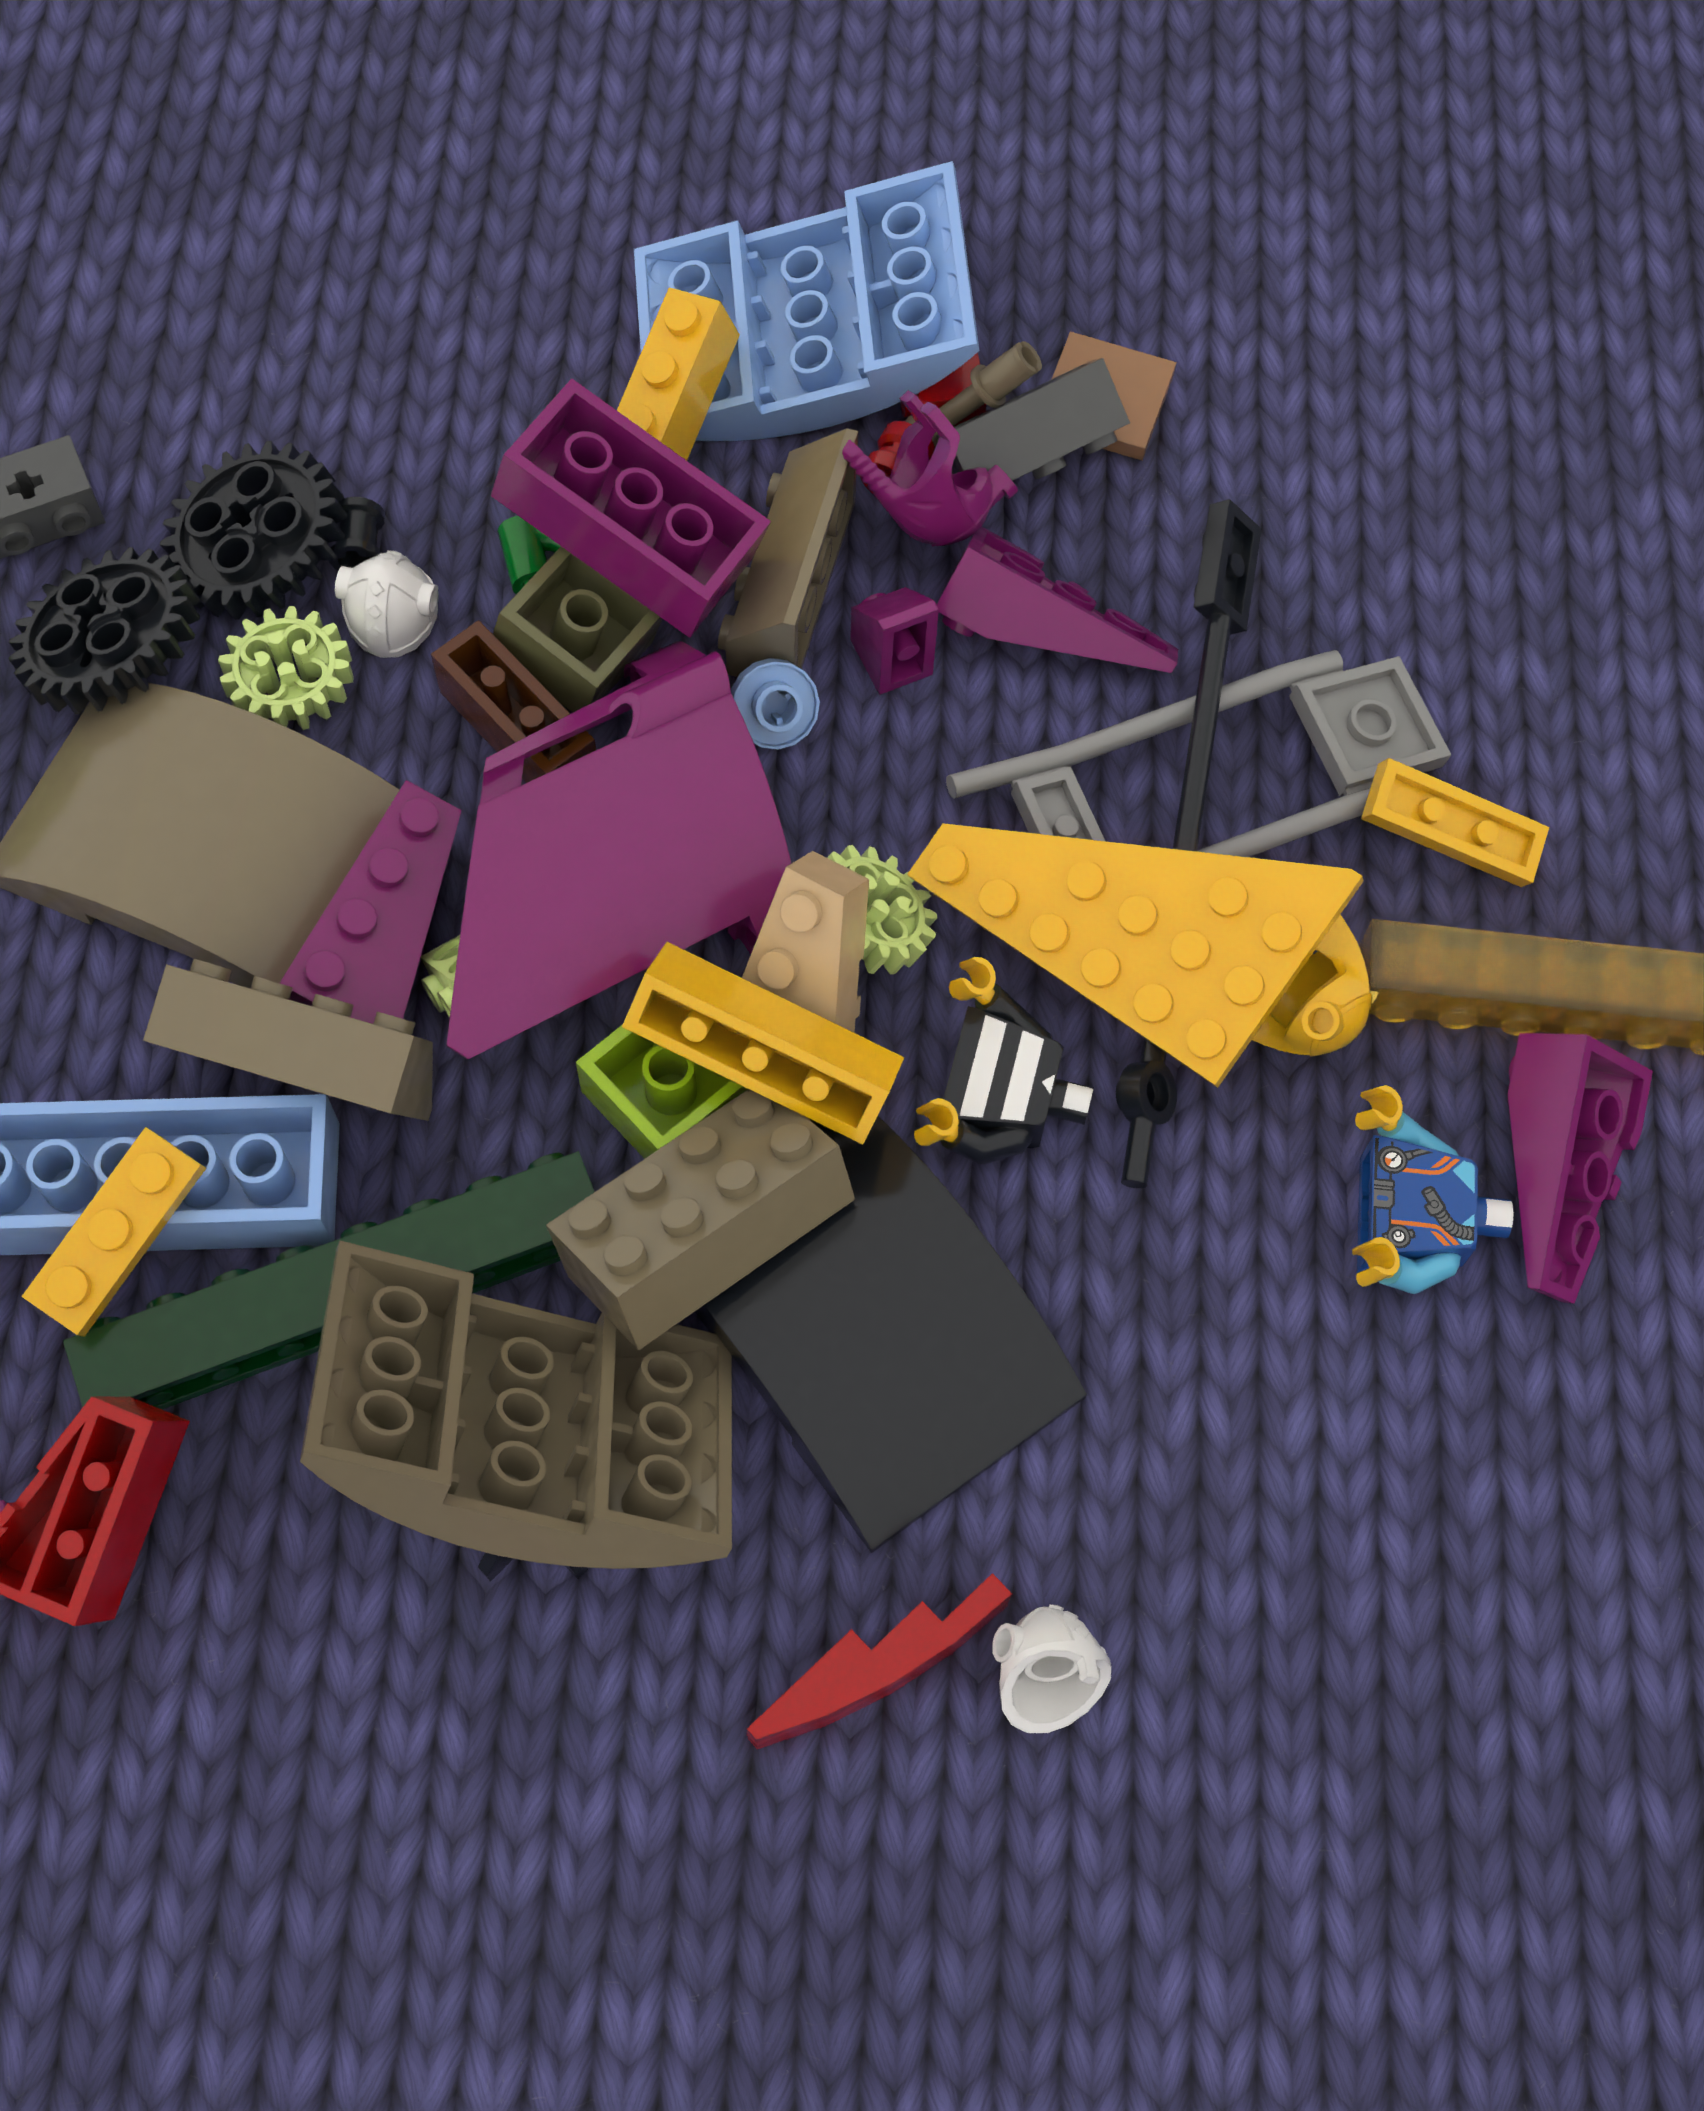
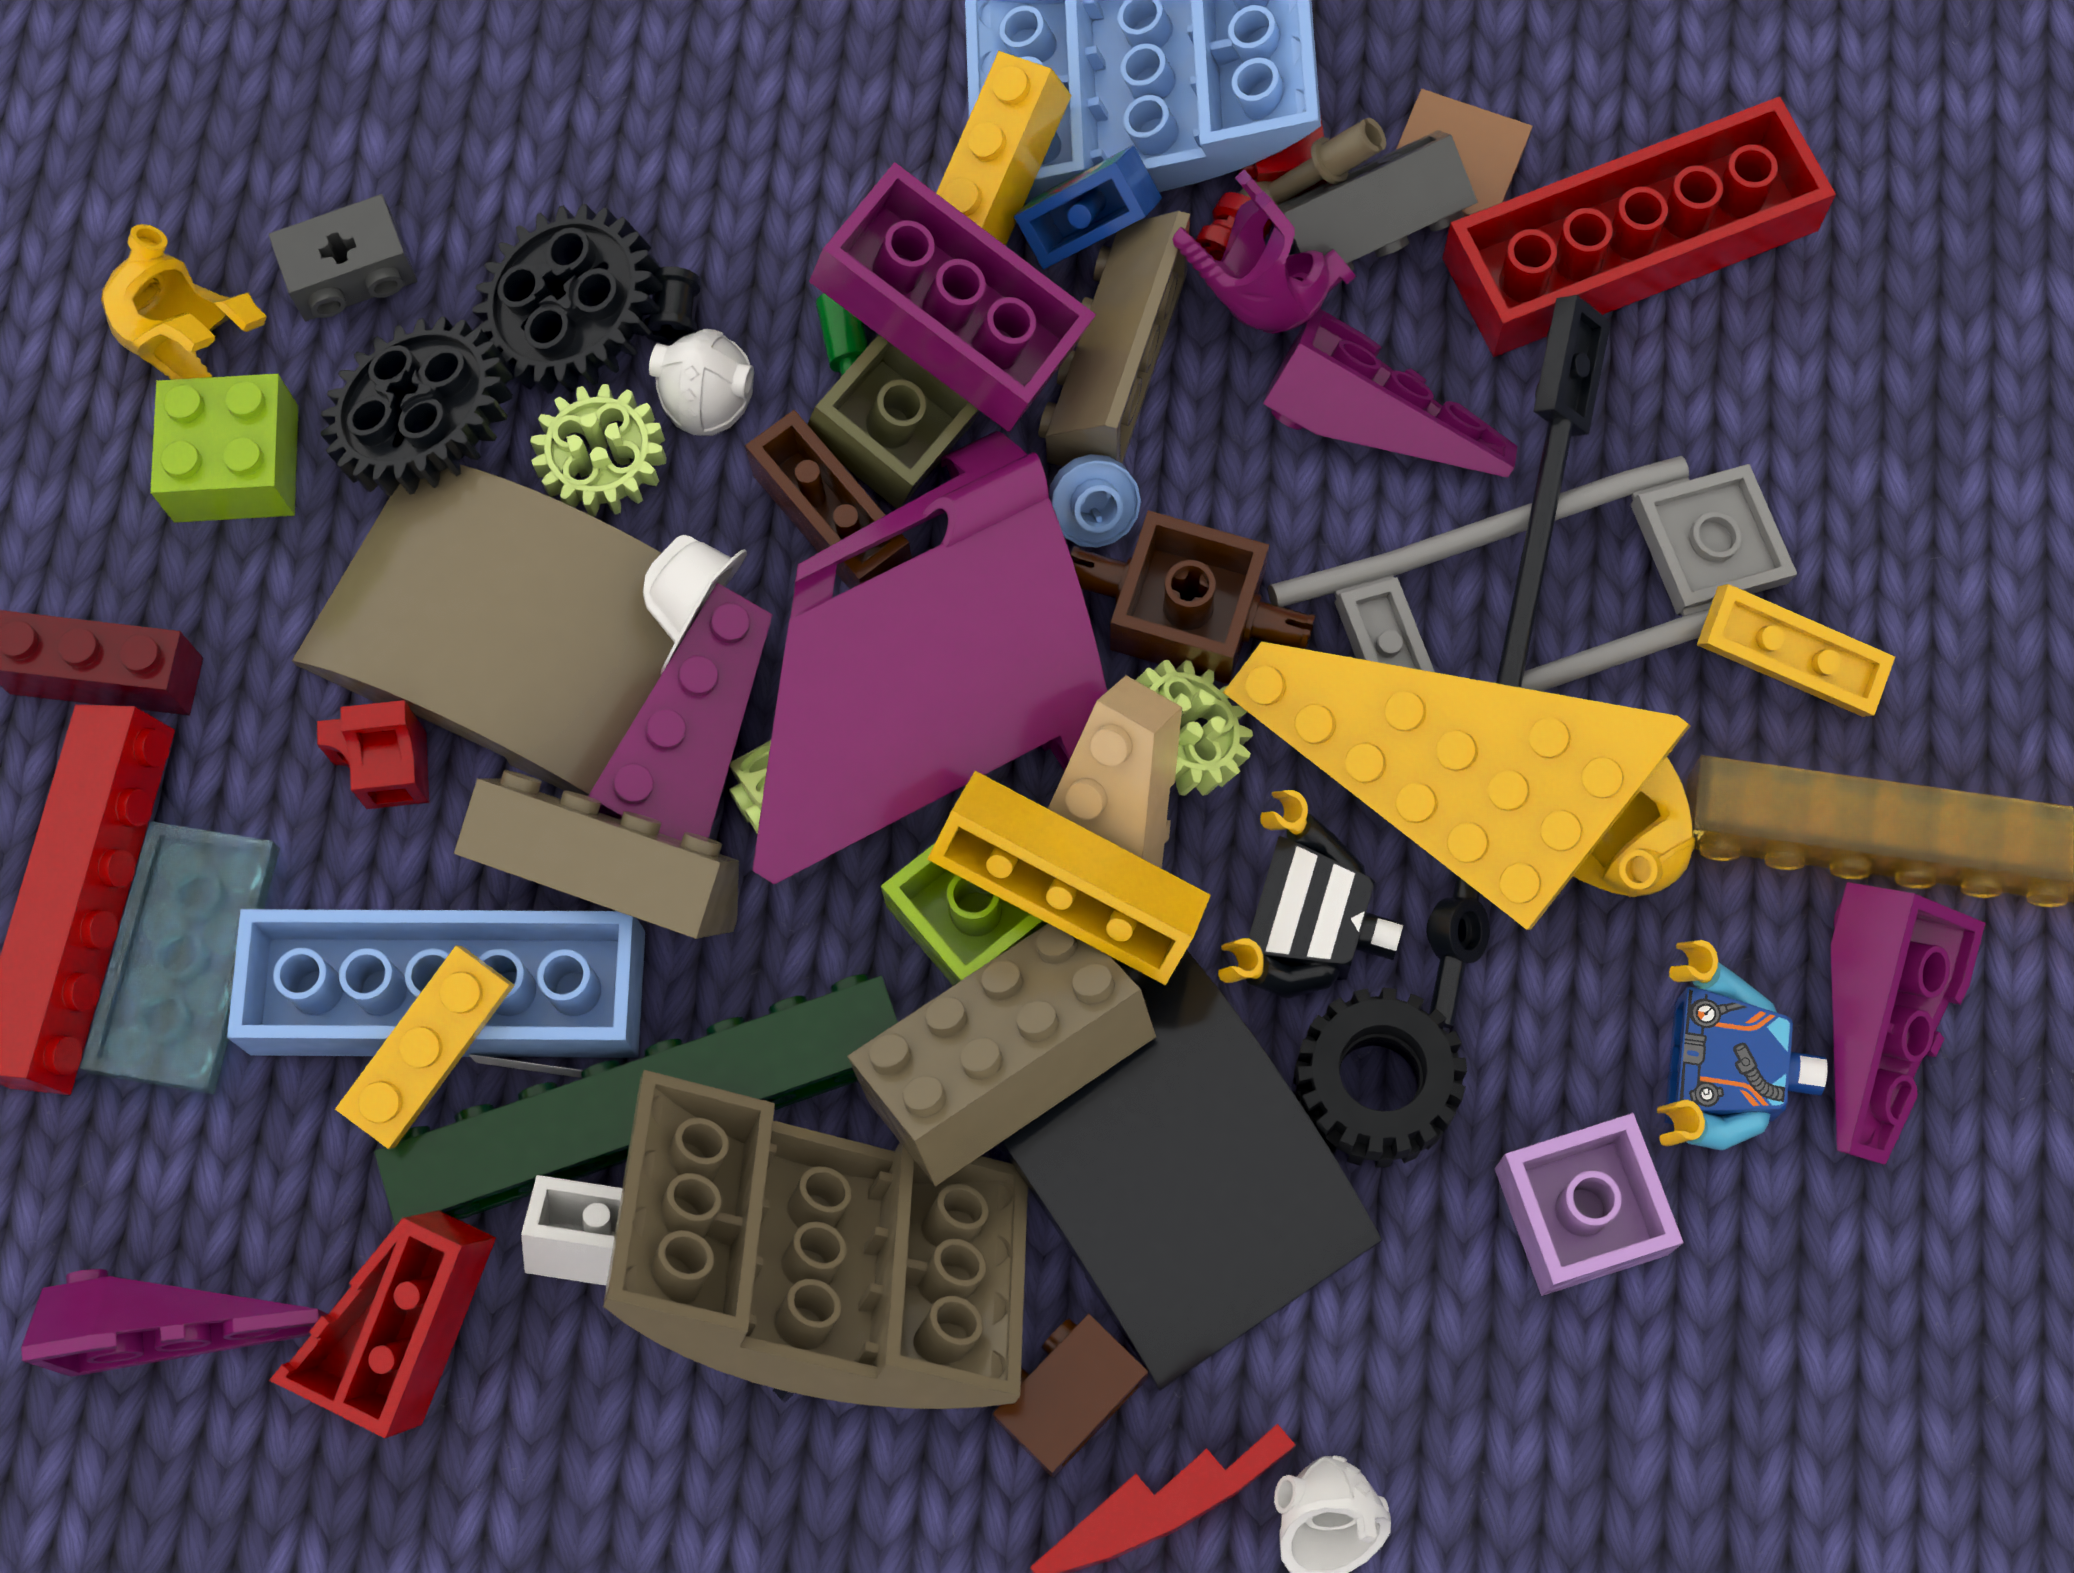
camera: 10 degrees right, 5 degrees up
(69, 954) = (383, 750): none -> red brick
(218, 1256) = (526, 1066): none -> white sticker
(264, 1411) = (570, 1229): none -> white brick
(370, 781) = (682, 582): none -> white piece
(759, 433) = (1088, 207): none -> blue brick
(781, 1556) = (1070, 1393): none -> reddish brown brick
(870, 787) = (1184, 560): none -> reddish brown brick
(895, 637) = (1221, 430): magenta slope -> none
(1090, 1186) = (1411, 1034): none -> black tyre
(1280, 443) = (1638, 224): none -> red brick
(1289, 1347) = (1588, 1204): none -> lavender brick

